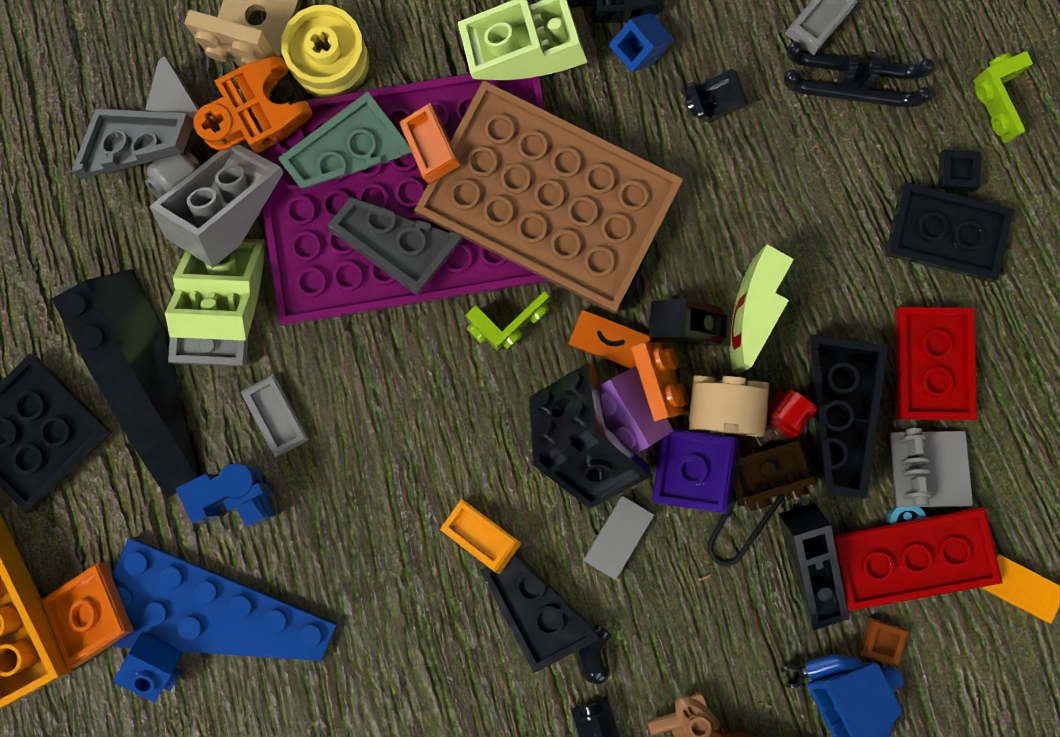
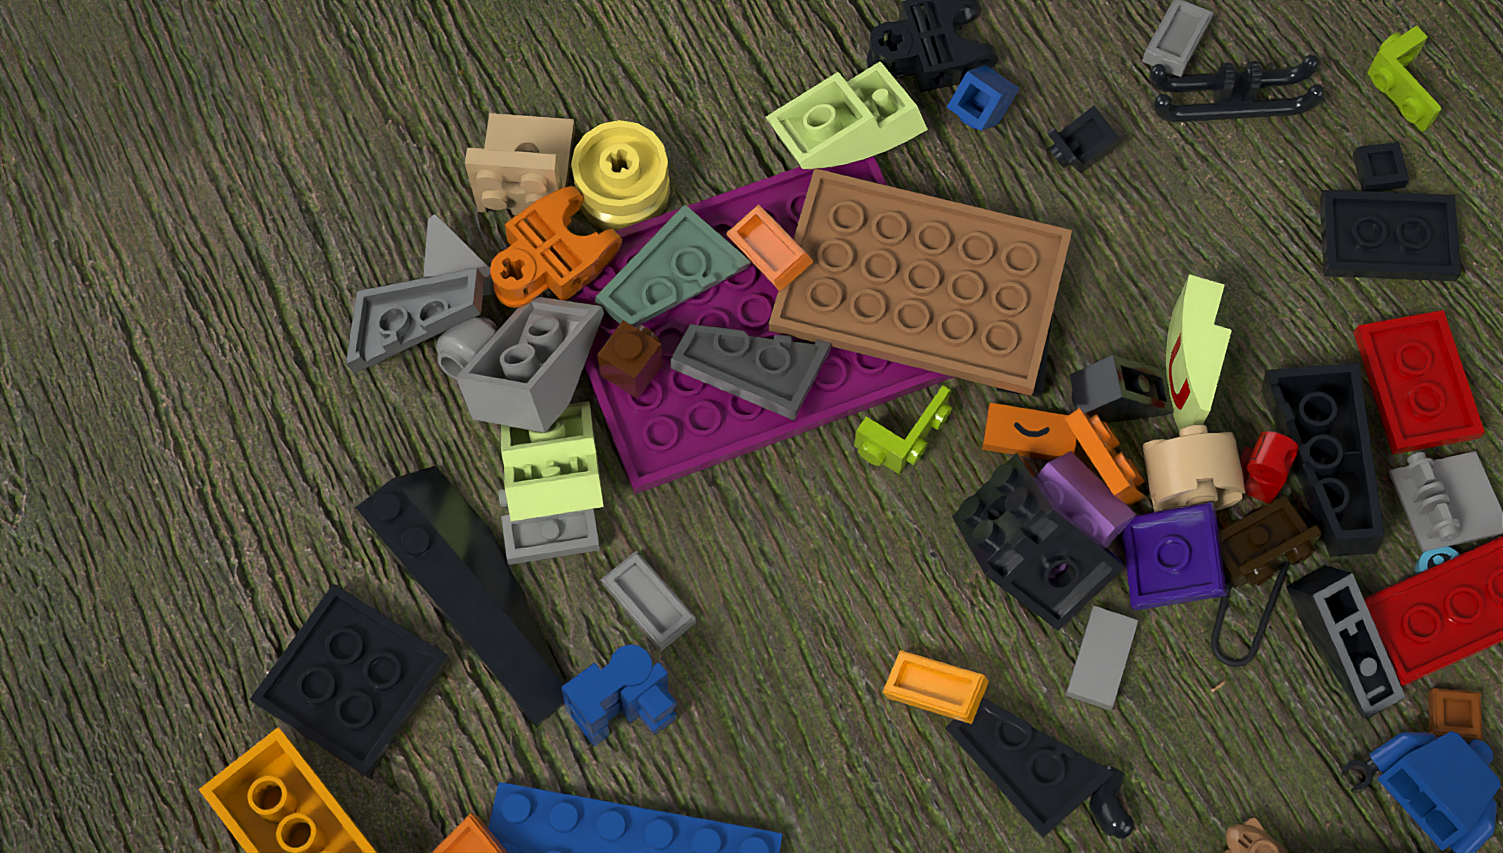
camera: 15 degrees left, 15 degrees down
(296, 216) = (631, 358): none -> reddish brown brick

